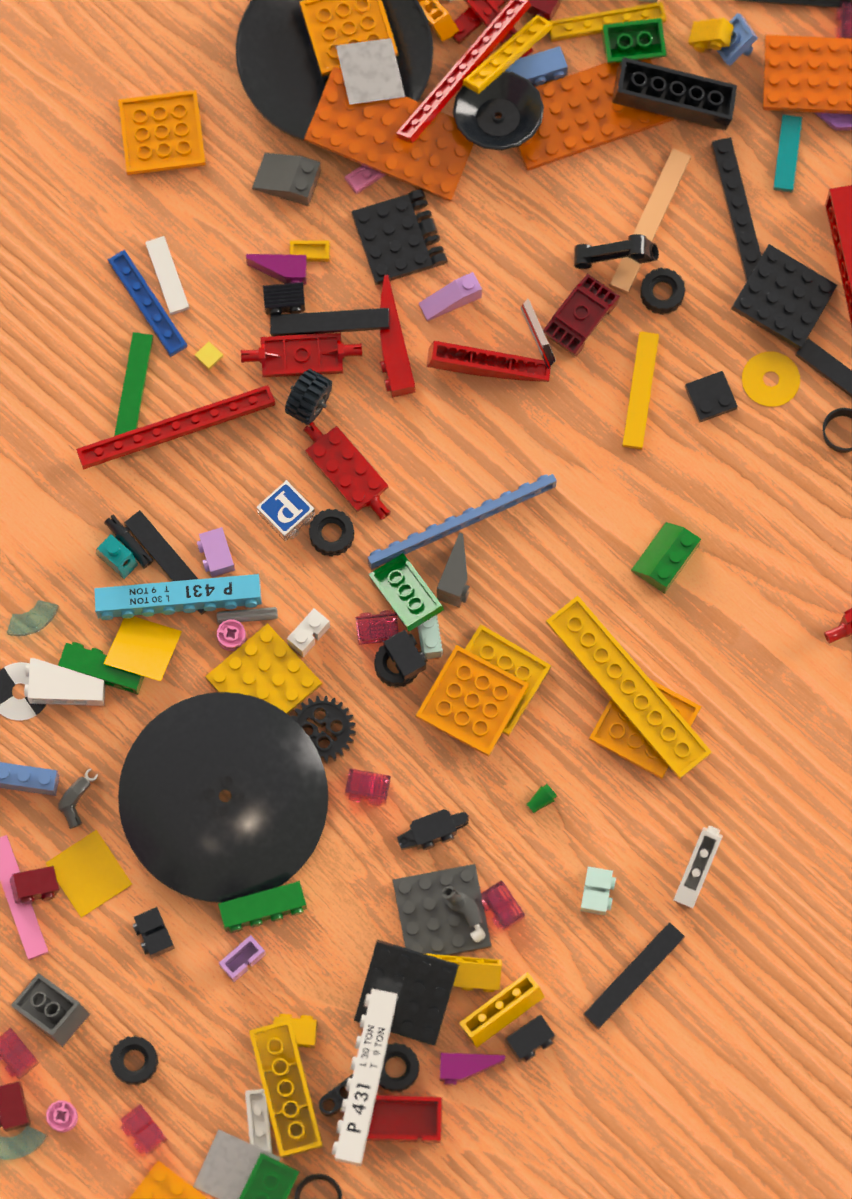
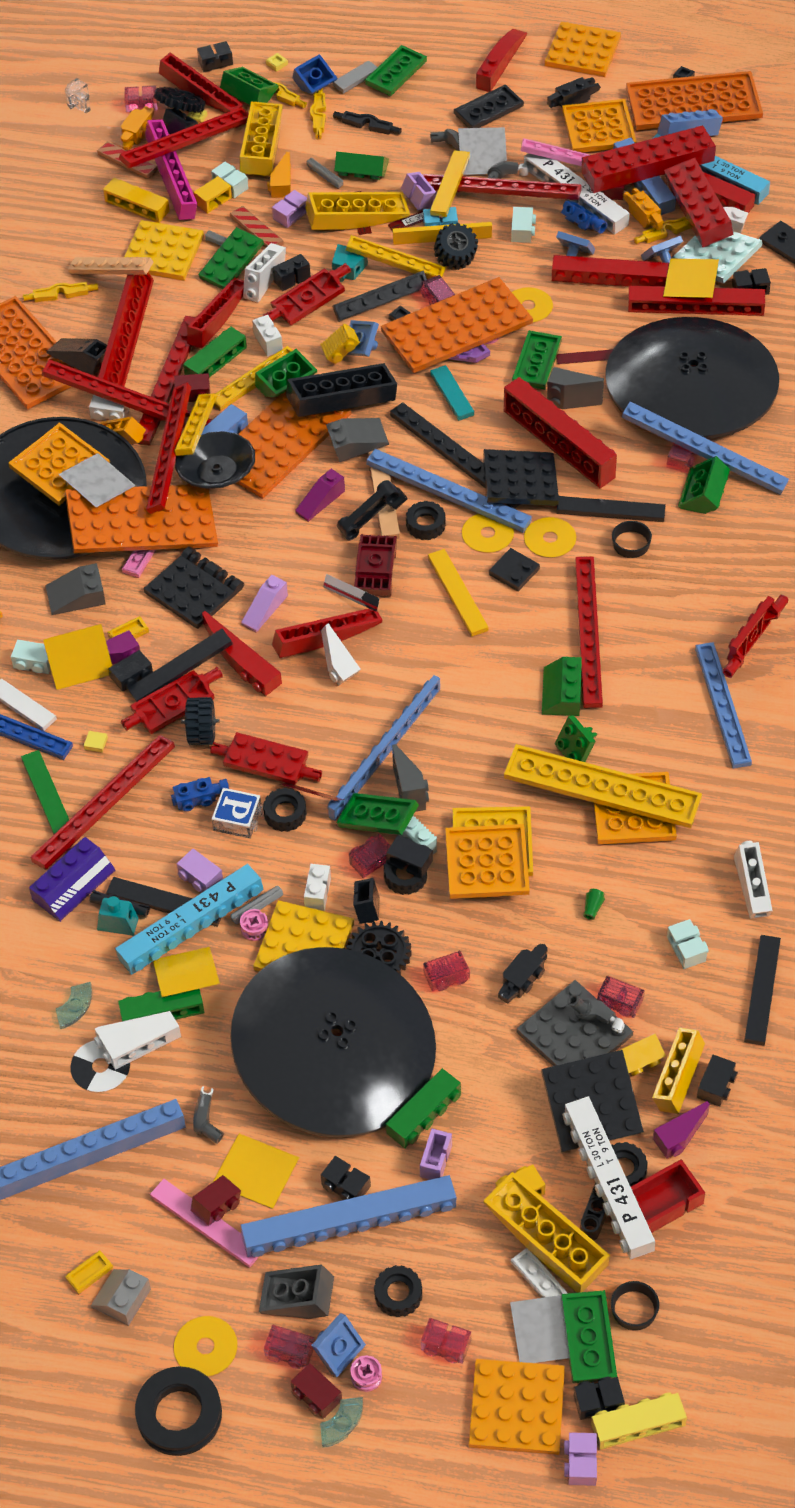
camera: 30 degrees left, 20 degrees down
(51, 1079) = (338, 1345): none -> medium blue tile
(101, 491) = (71, 879): none -> dark purple slope
(134, 968) = (348, 1216): none -> medium blue brick
(204, 229) = (29, 656): none -> light aqua piece
(241, 258) = (78, 656): none -> yellow sticker
(260, 470) = (197, 793): none -> blue brick
(340, 675) = (366, 901): none -> black piece
(364, 532) = (312, 791): none -> dark red sticker
(476, 405) = (338, 659): none -> white slope
(581, 203) = (323, 492): none -> magenta slope
(636, 625) = (575, 740): none -> green plate
(657, 155) = (356, 436): none -> dark grey slope
(705, 268) = (448, 490): none -> medium blue plate
(715, 354) = (472, 534): none -> yellow sticker
(733, 509) = (589, 632): none -> red plate
(798, 27) = (398, 313): none -> black tile
(804, 664) = (723, 705): none -> medium blue tile

